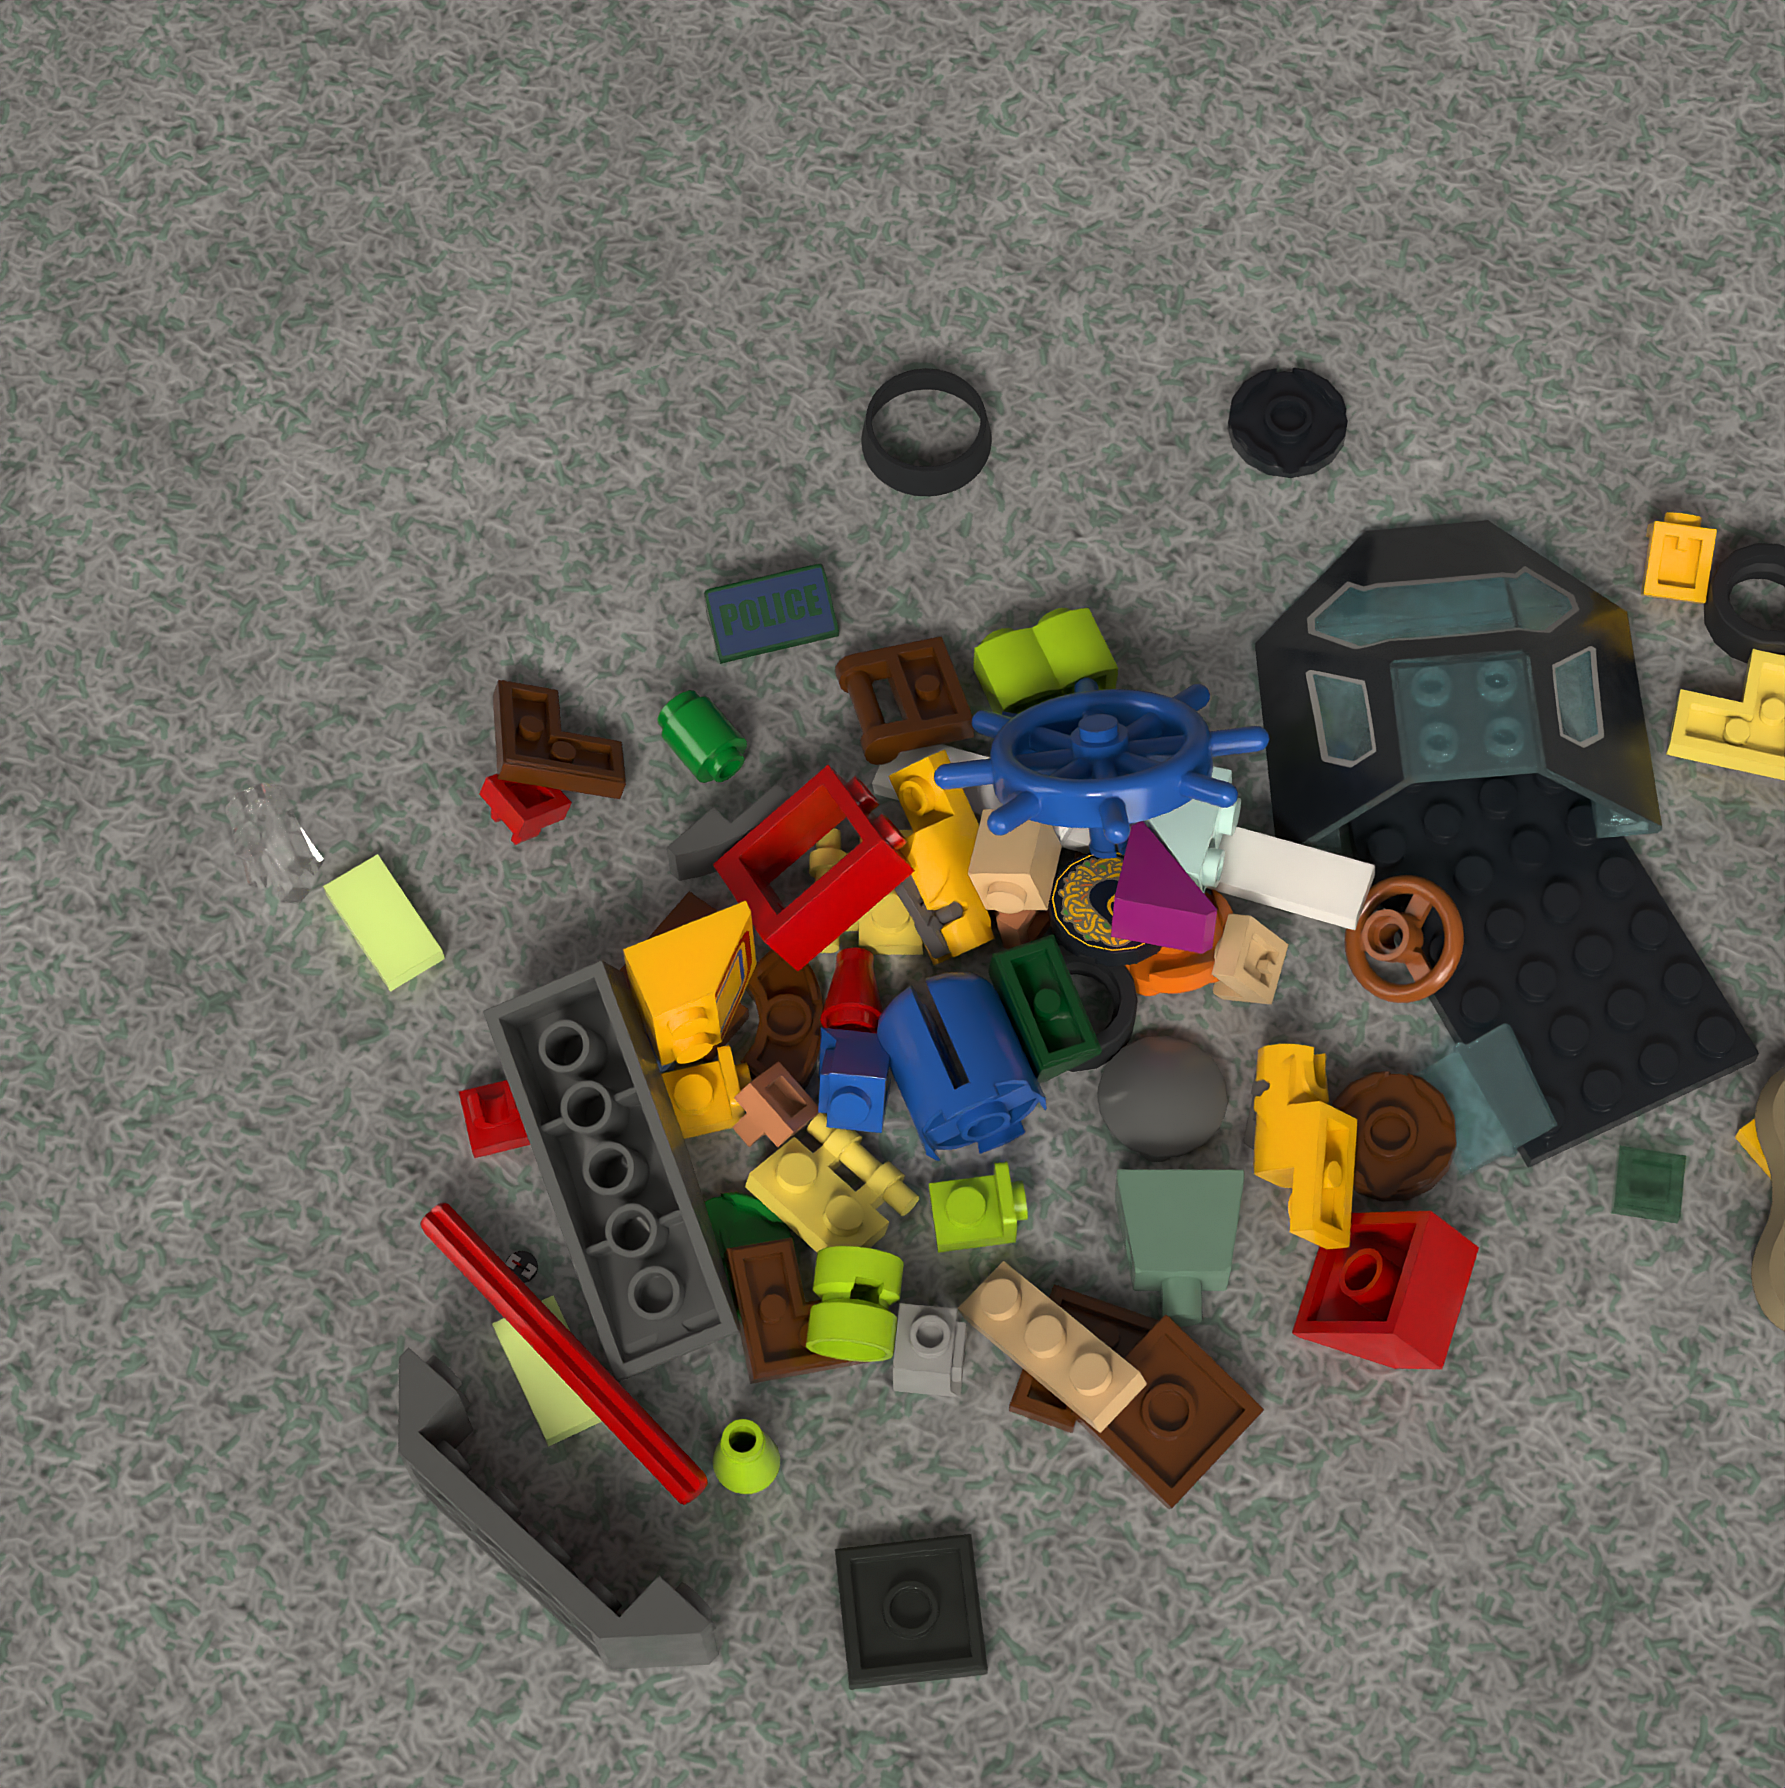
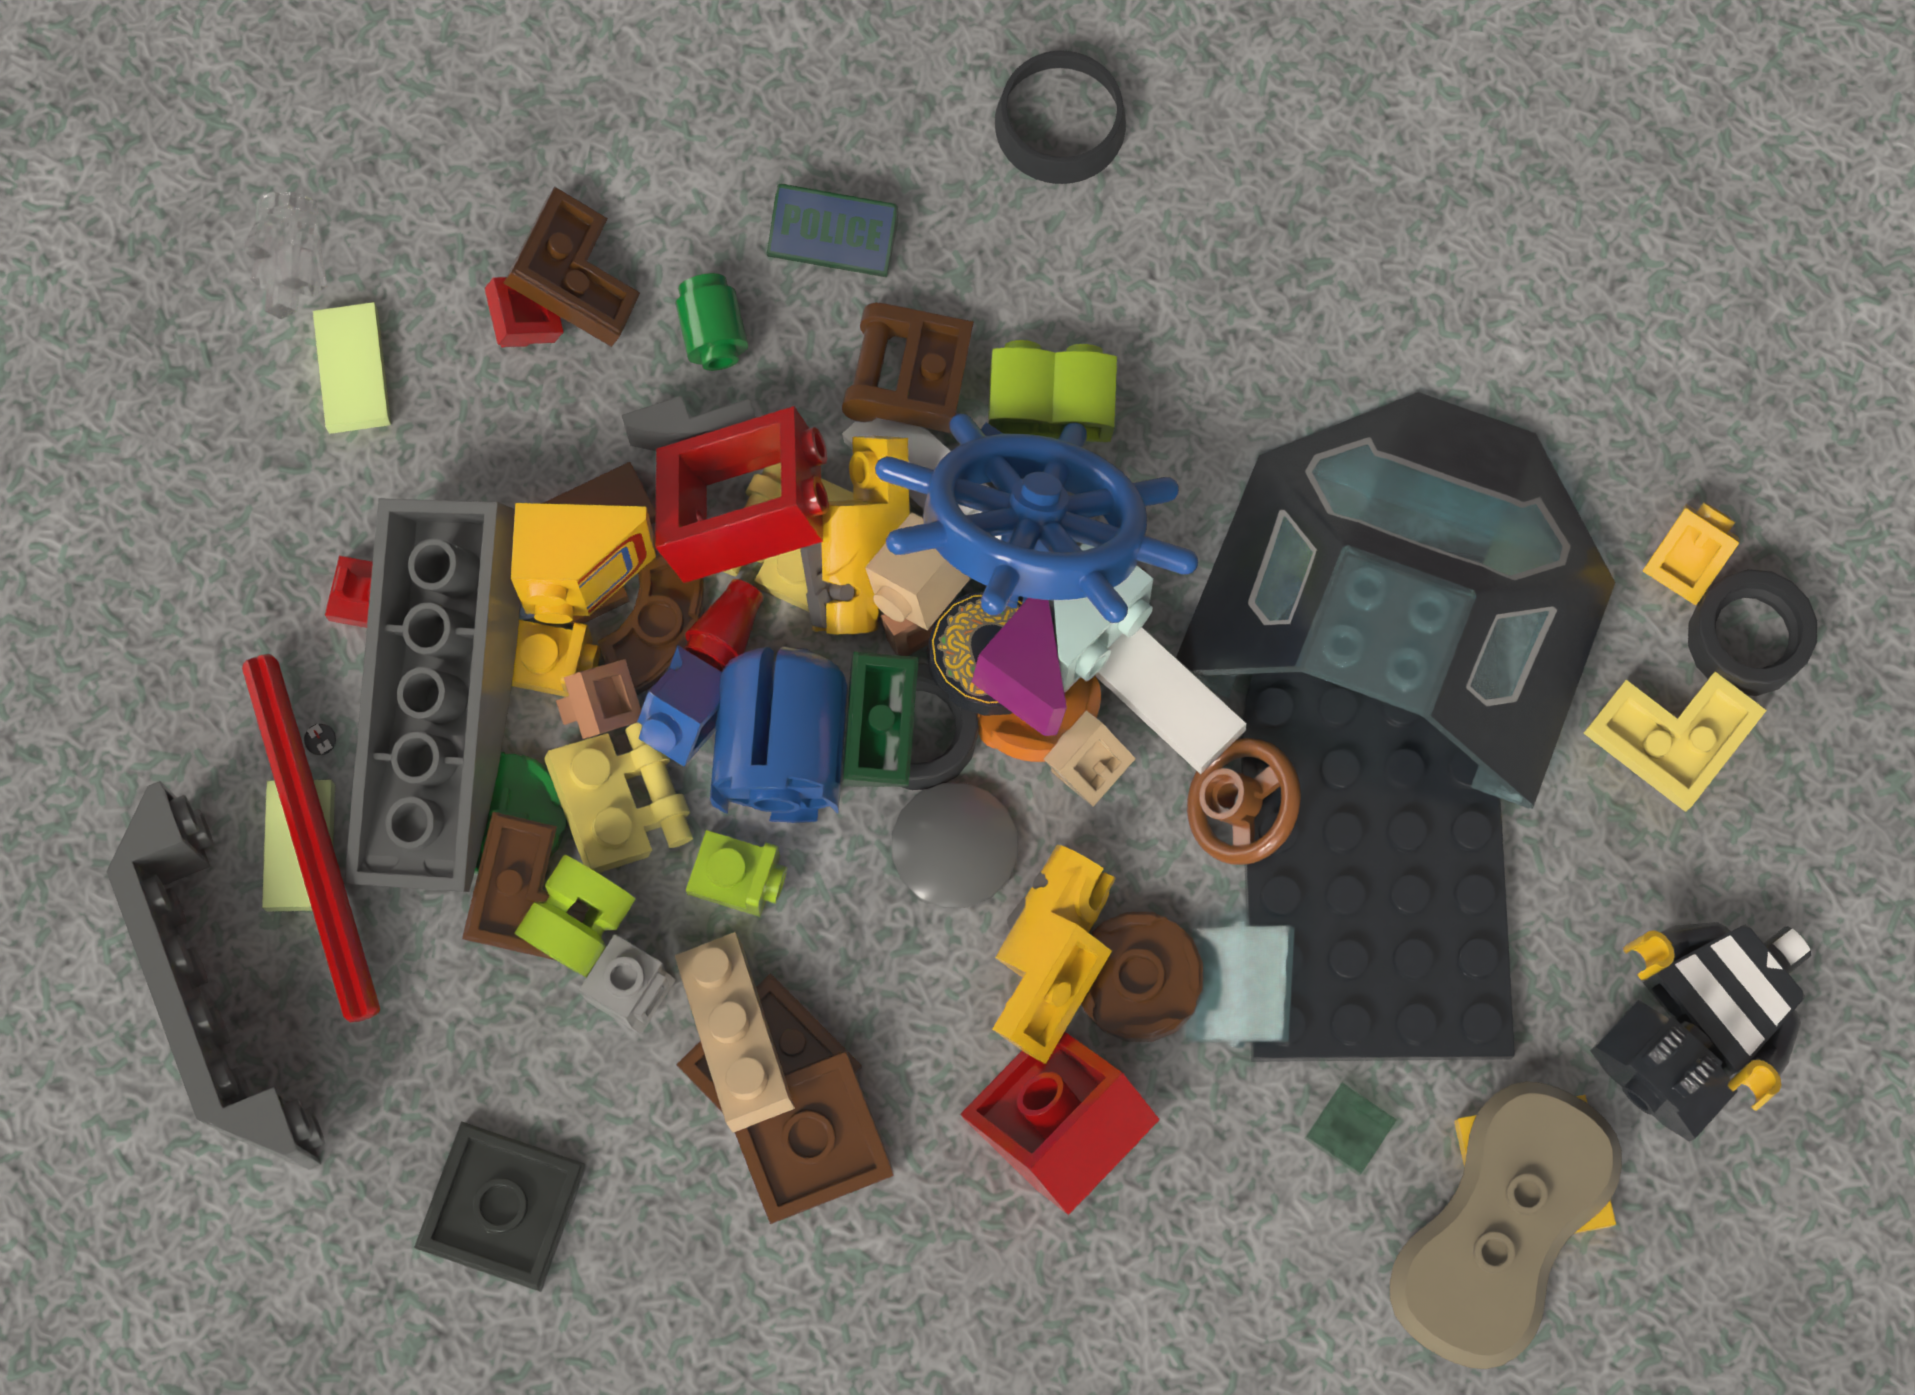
camera: 20 degrees right, 10 degrees up
(748, 1470) = (431, 1017): lime cone -> none
(1179, 1233) = (902, 981): sand green torso -> none
(1282, 440) = (1390, 272): black tile -> none

